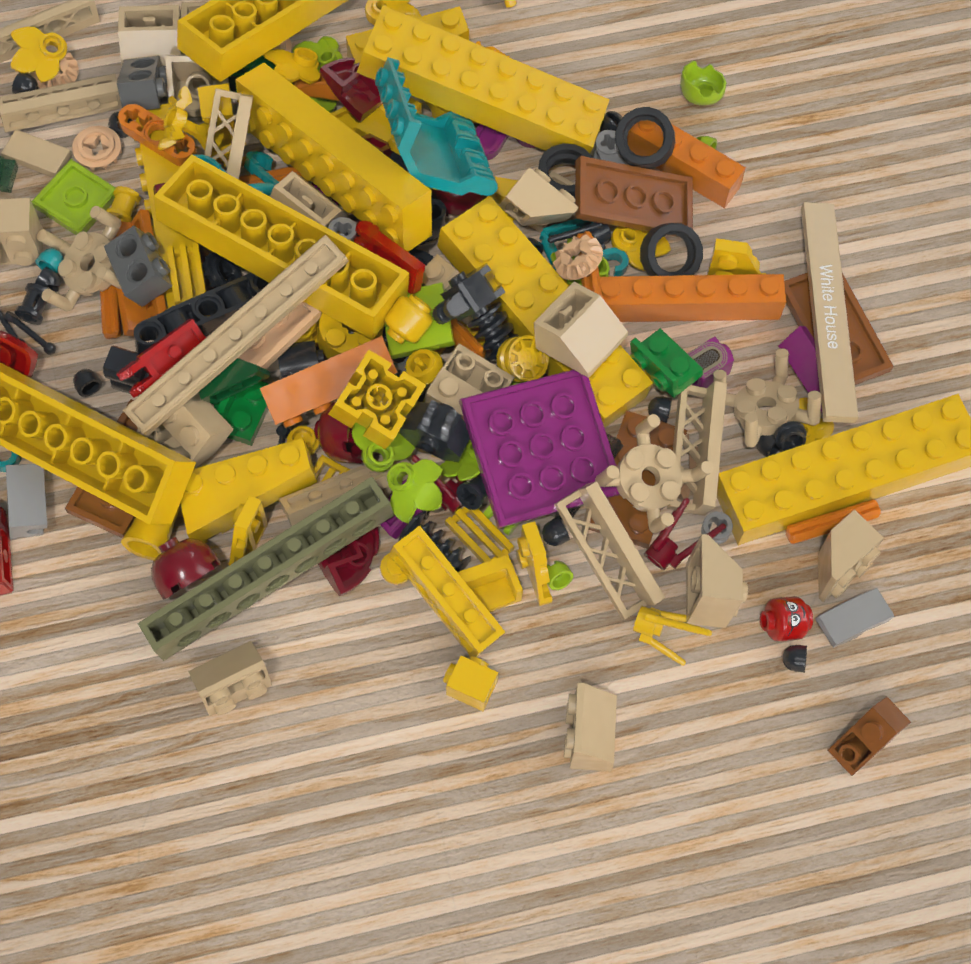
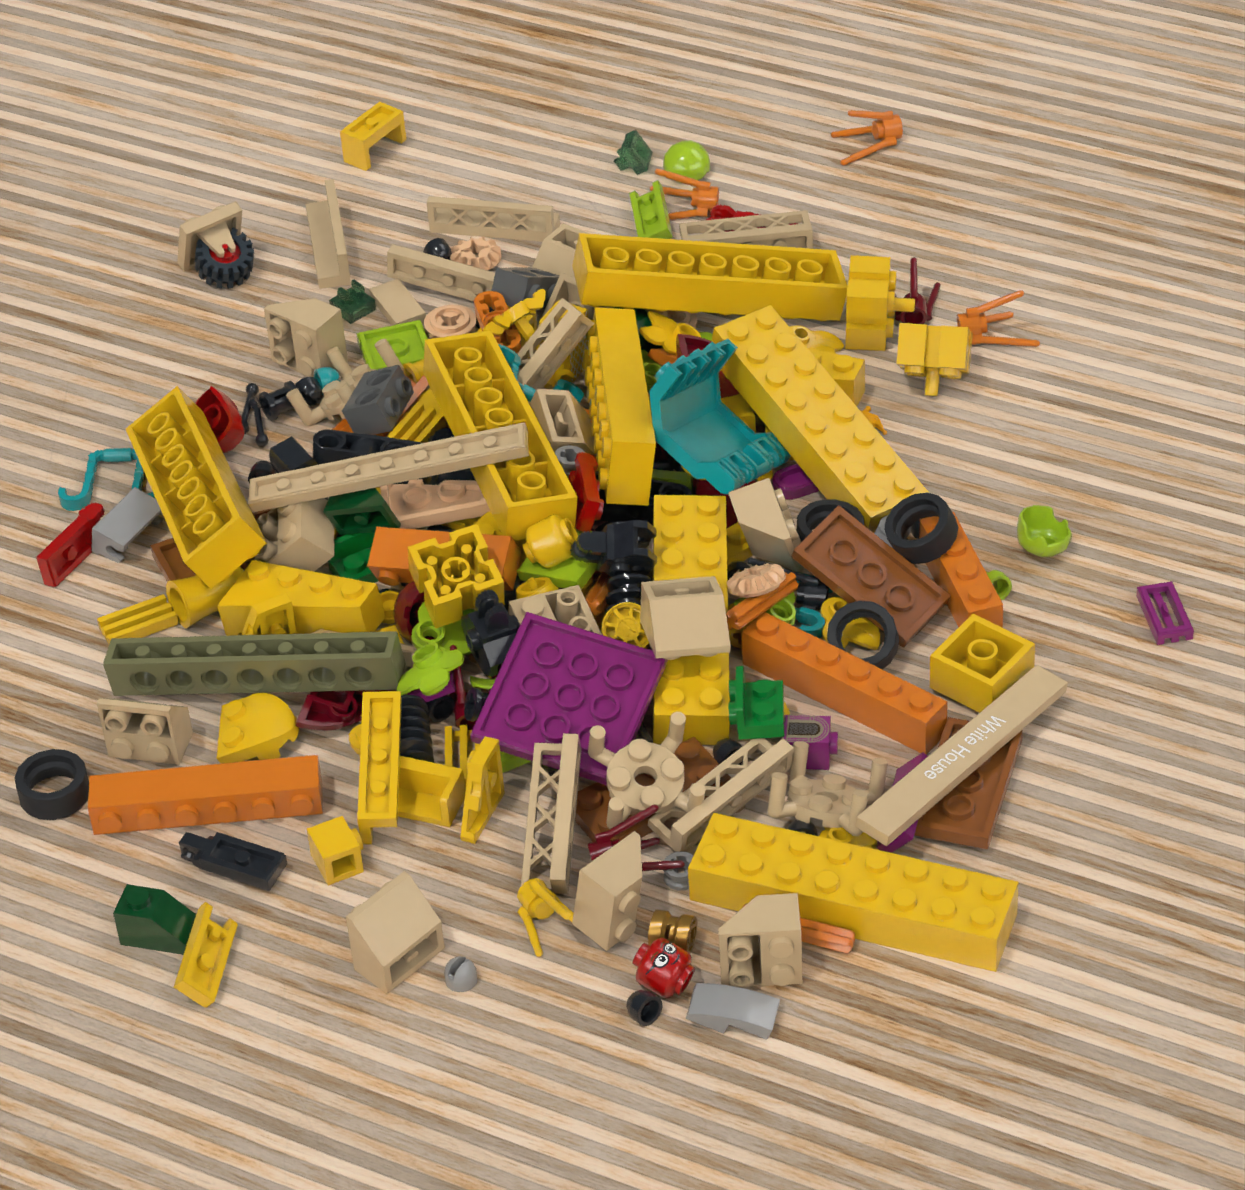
camera: 45 degrees right, 25 degrees down
(34, 55) = (466, 228): yellow plate -> none
(128, 556) = (139, 619): none -> yellow tile
(163, 355) = (318, 453): red hinge -> none
(180, 759) = (58, 803): none -> black tyre
(181, 565) = (189, 617): dark red cylinder -> none
(307, 618) = (255, 728): none -> yellow slope
(329, 704) = (205, 794): none -> orange brick
(404, 742) = (234, 858): none -> black hinge
(405, 838) = (152, 920): none -> dark green slope
(465, 840) = (205, 957): none -> yellow hinge
(554, 532) = (522, 788): black hinge -> none
(559, 575) = (490, 818): lime hinge -> none
(643, 721) = (465, 975): none -> light grey hinge
(732, 259) = (910, 661): yellow wing -> none
(765, 584) = (676, 929): none -> pearl gold wheel
(770, 223) = (979, 663): none -> yellow brick
(790, 435) = (826, 820): black plate -> none
(824, 104) = (1170, 631): none -> magenta tile
(869, 735) = (643, 1098): dark orange slope -> none

